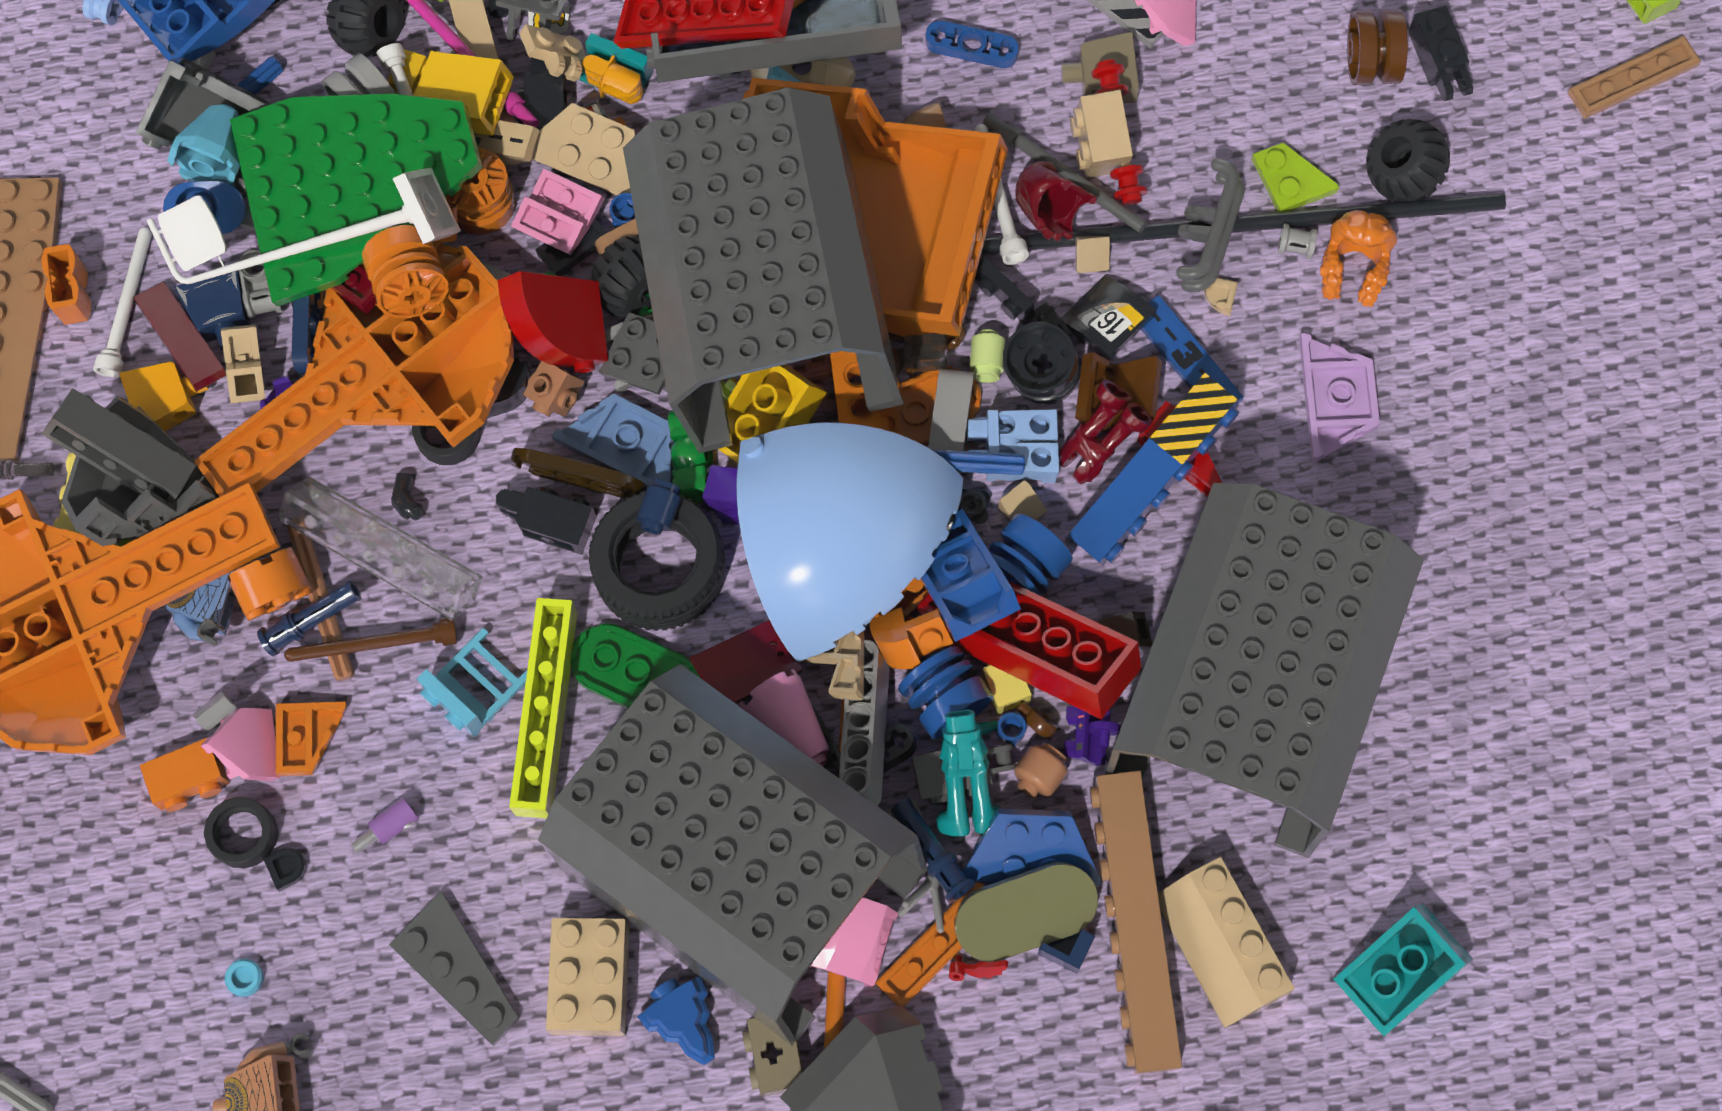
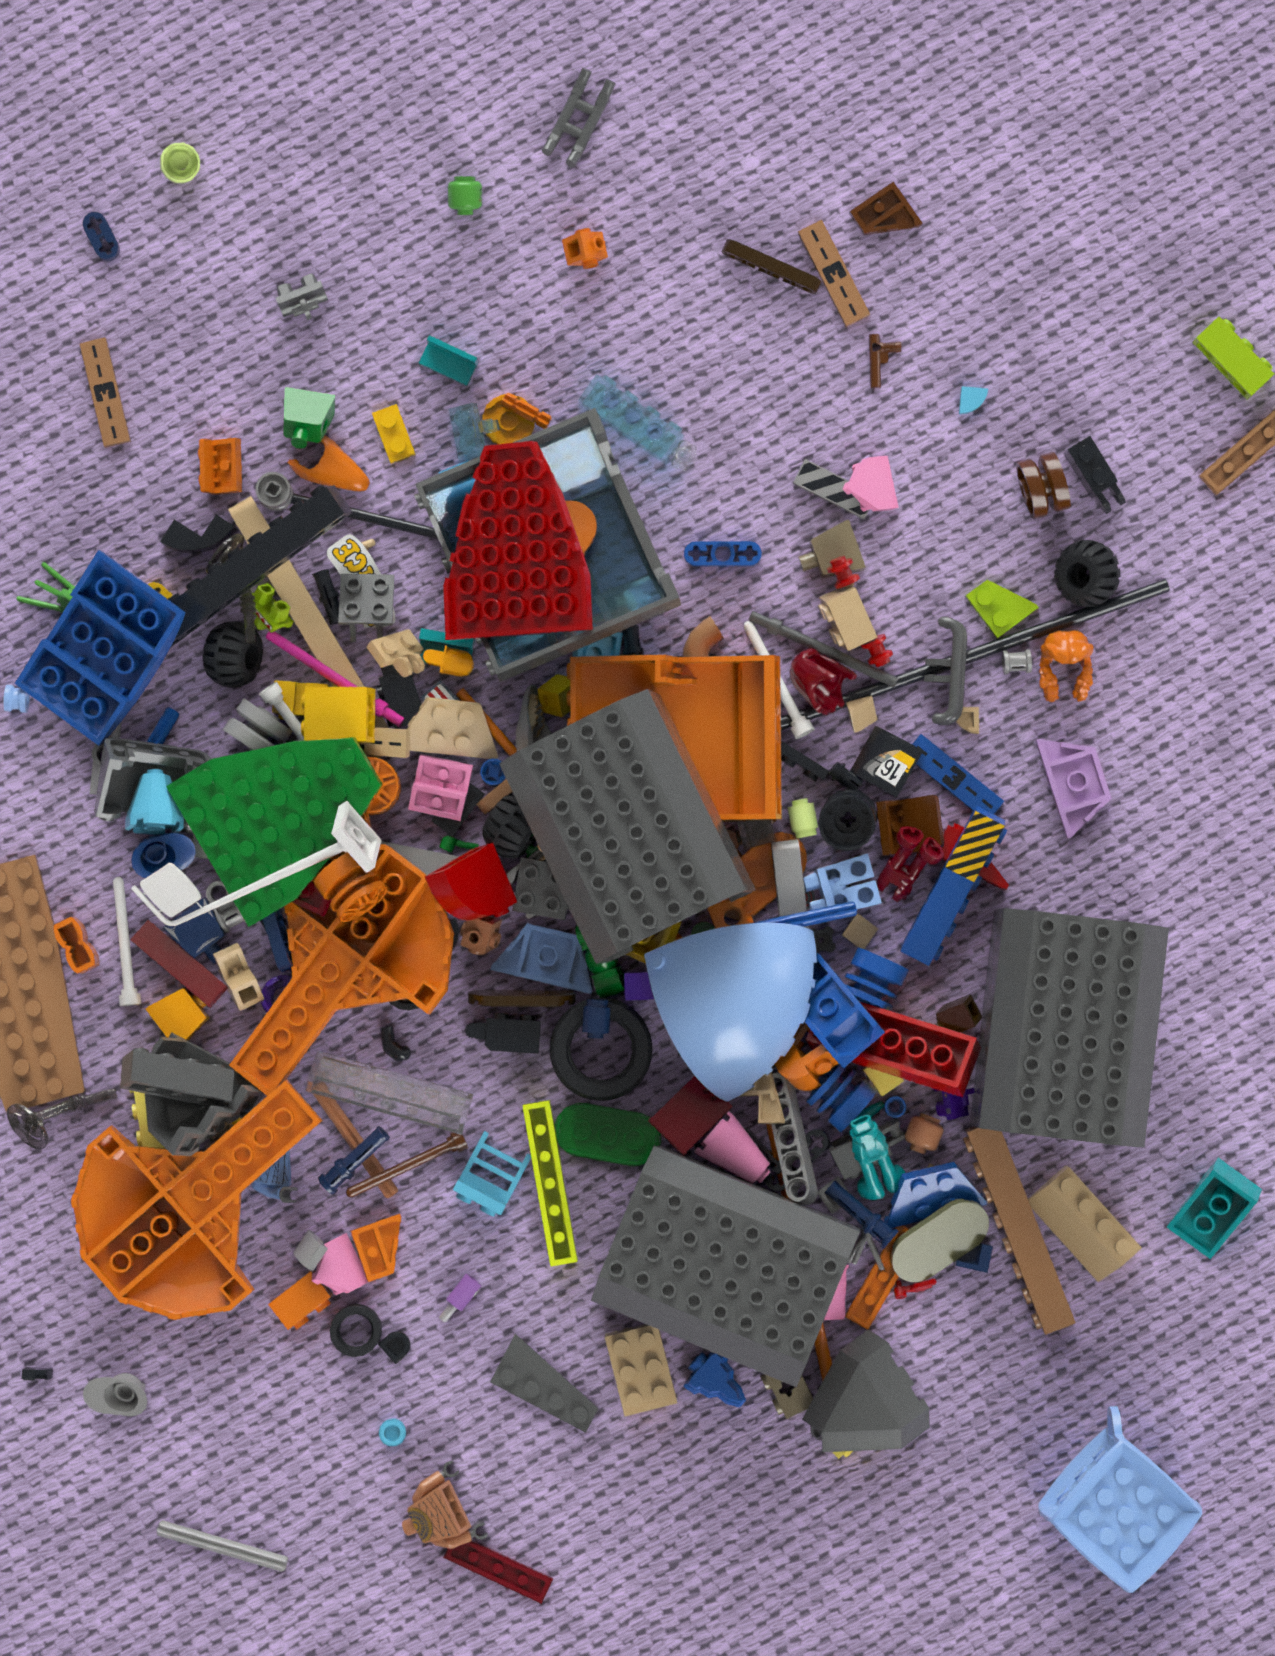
camera: 20 degrees left, 15 degrees up
(269, 583) = (320, 1146): orange brick -> none
(1038, 720) = (913, 1095): reddish brown piece -> none

